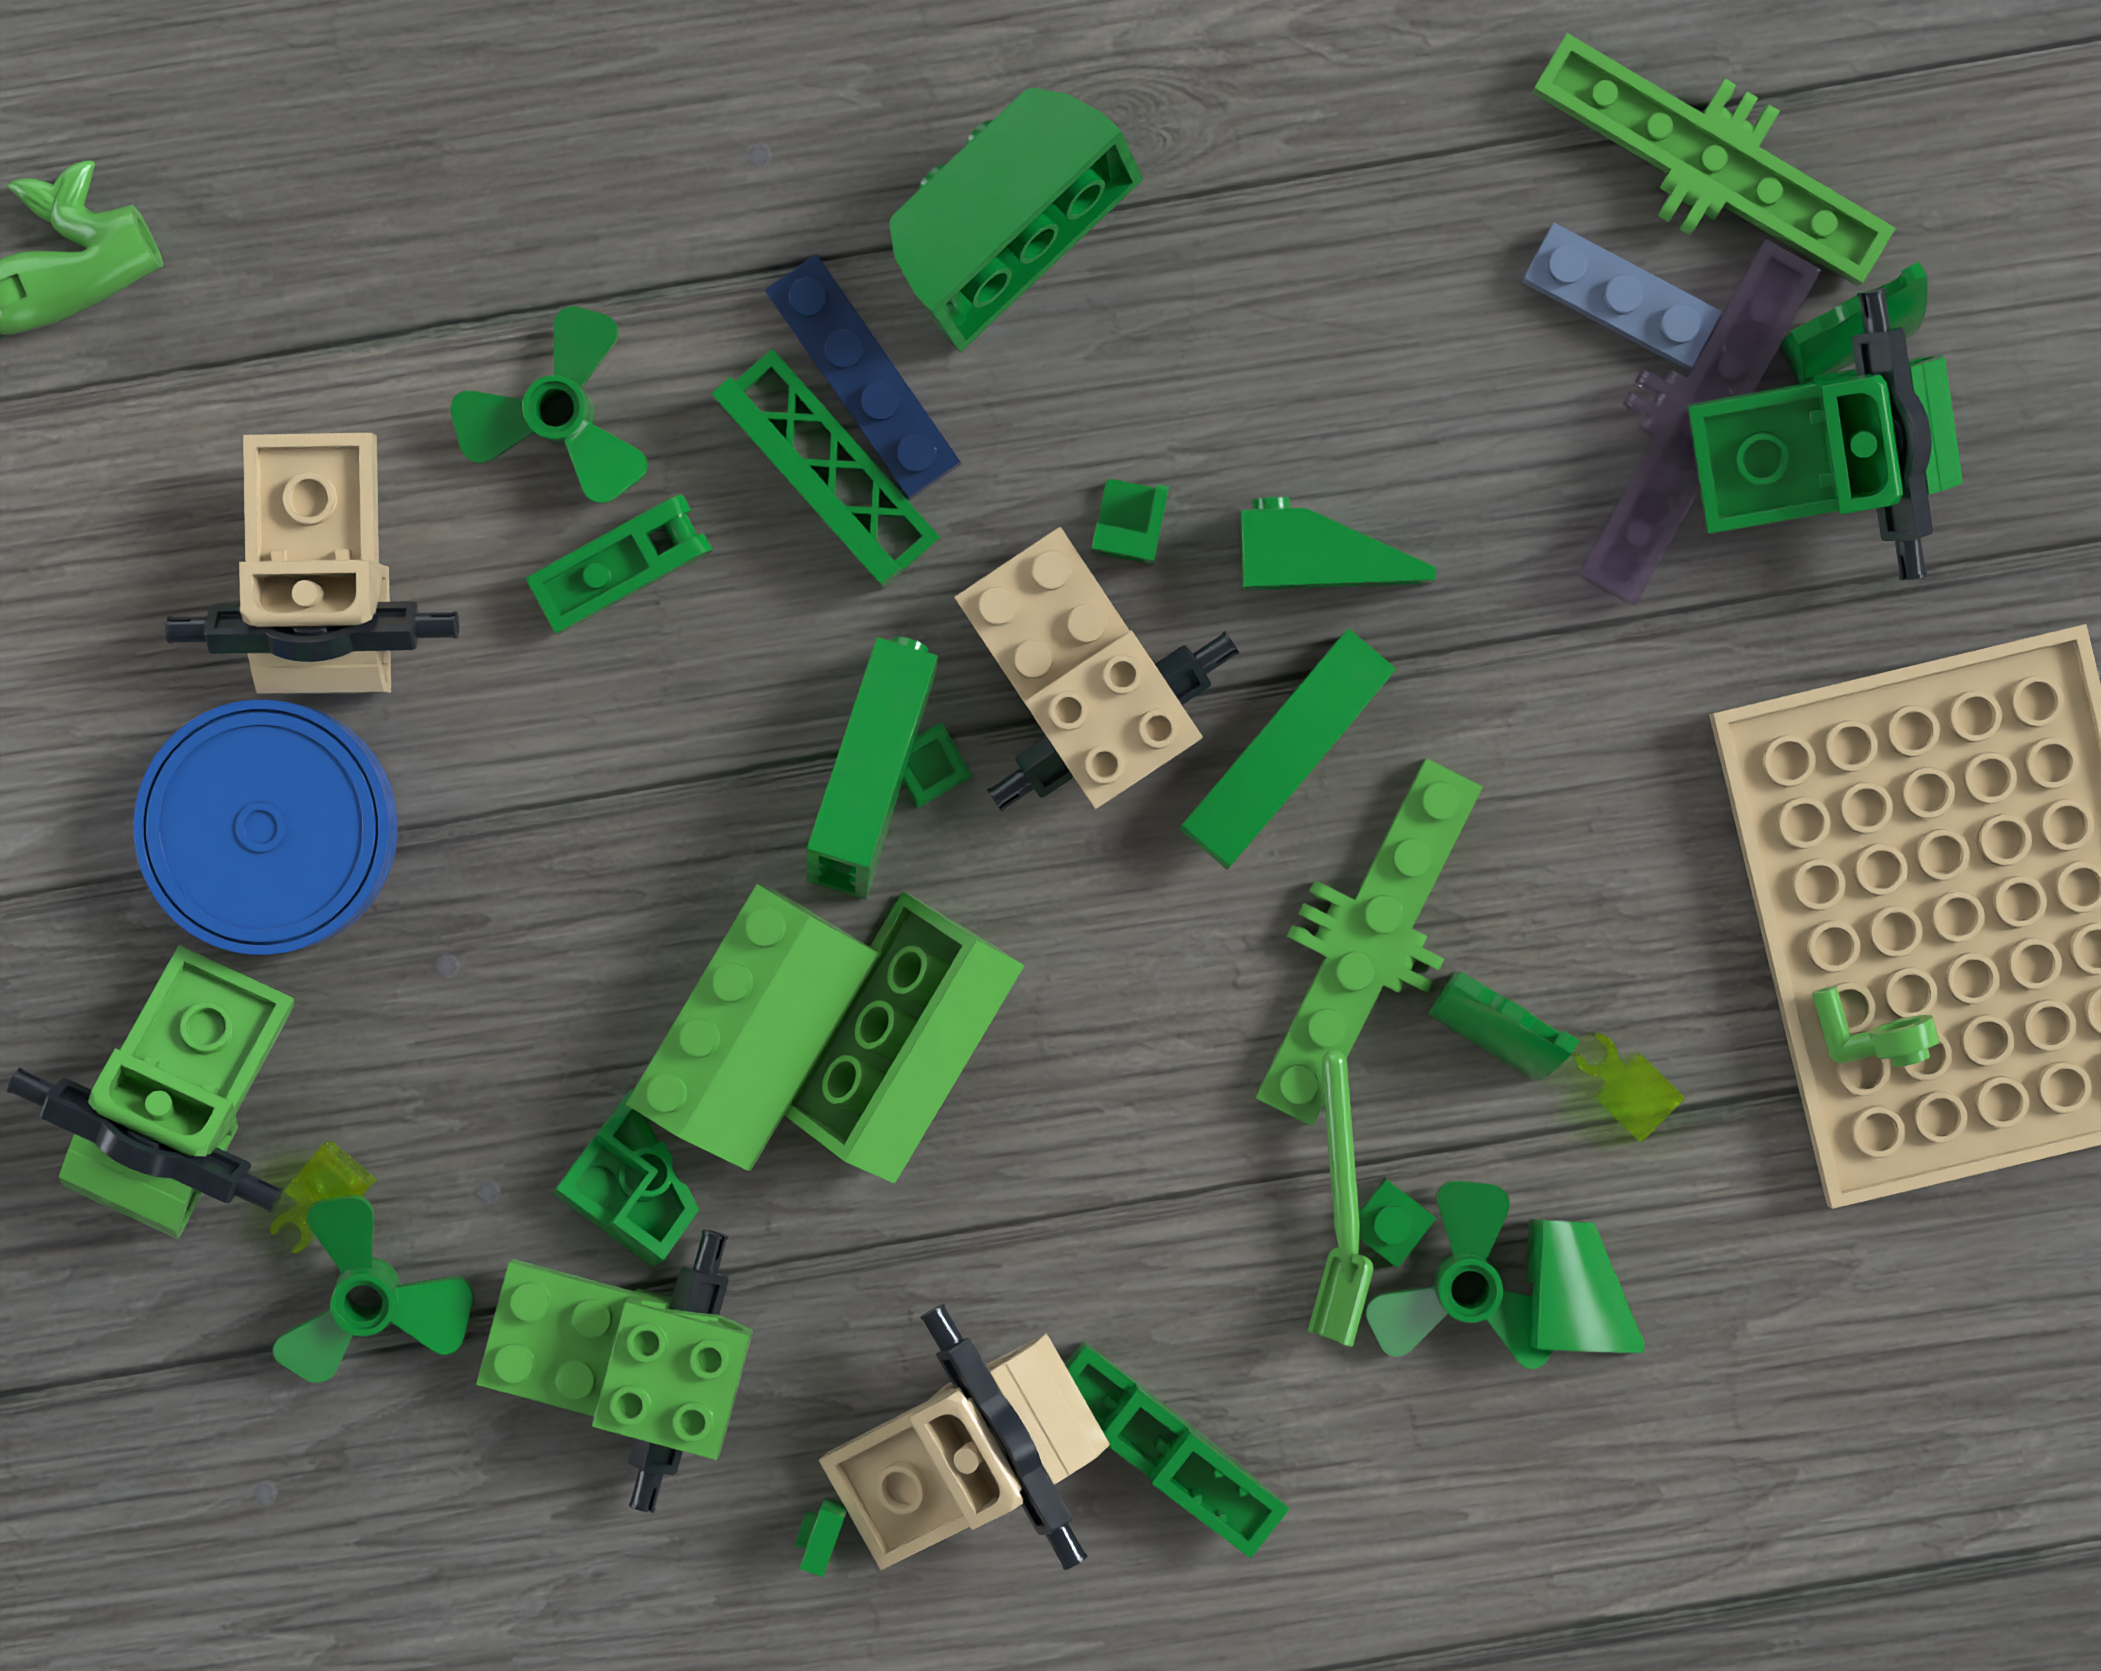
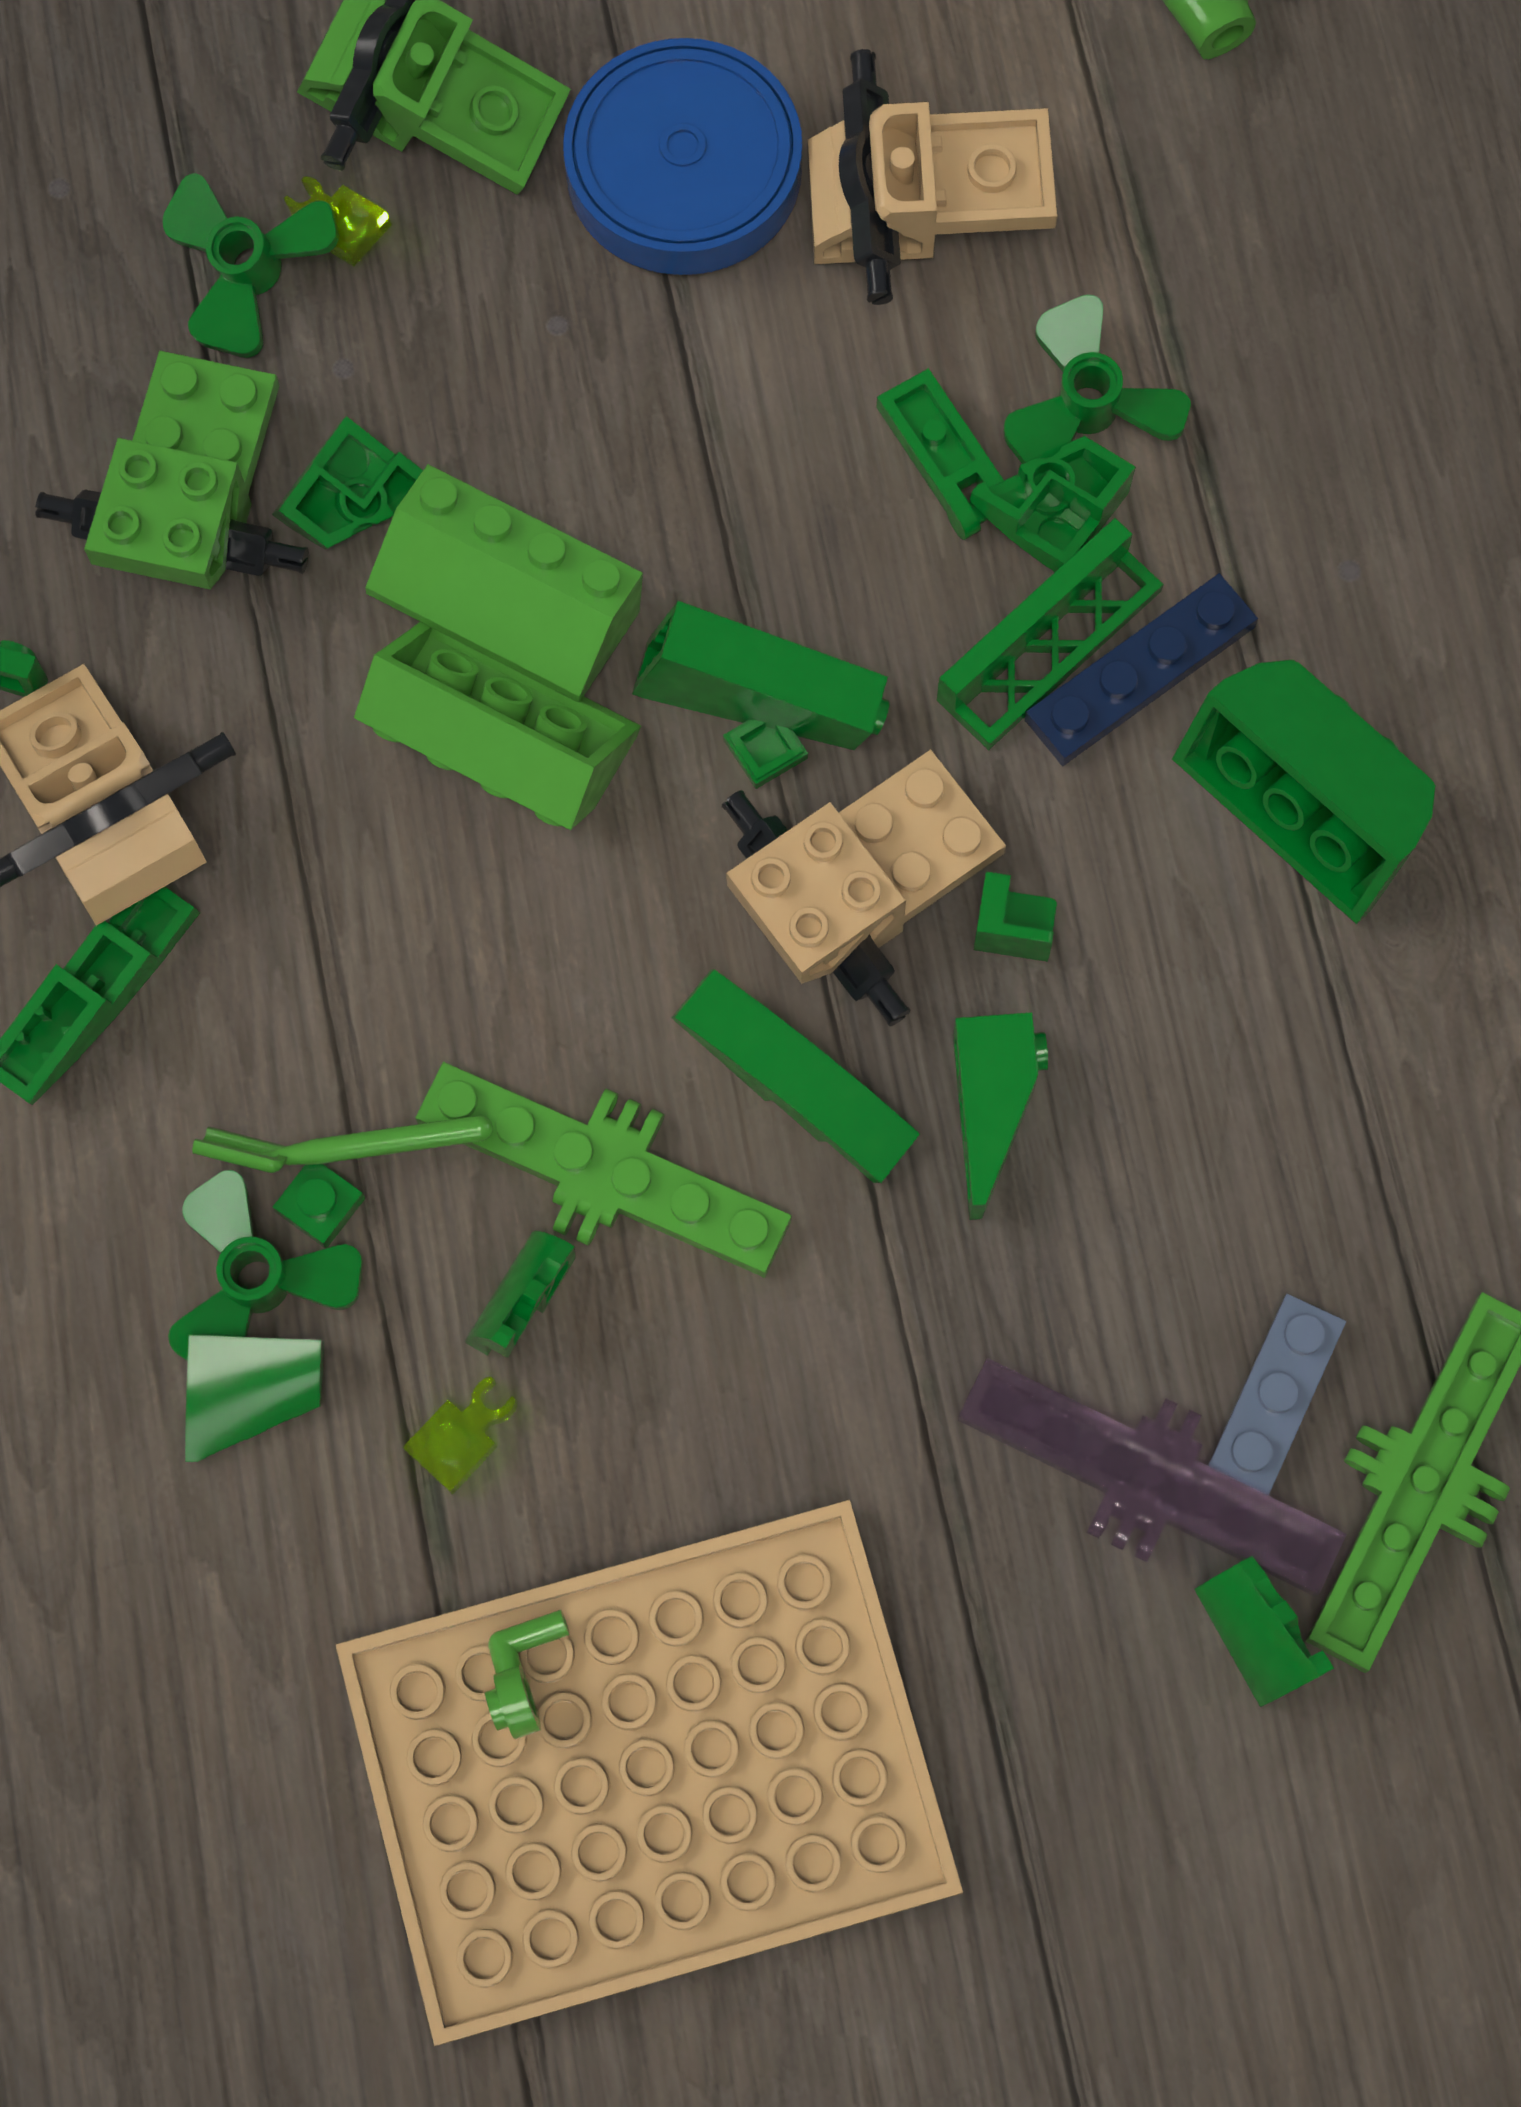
camera: 85 degrees right, 15 degrees down
(681, 452) = (1057, 500): none -> green slope
(1836, 443) = (1138, 1608): green piece -> none

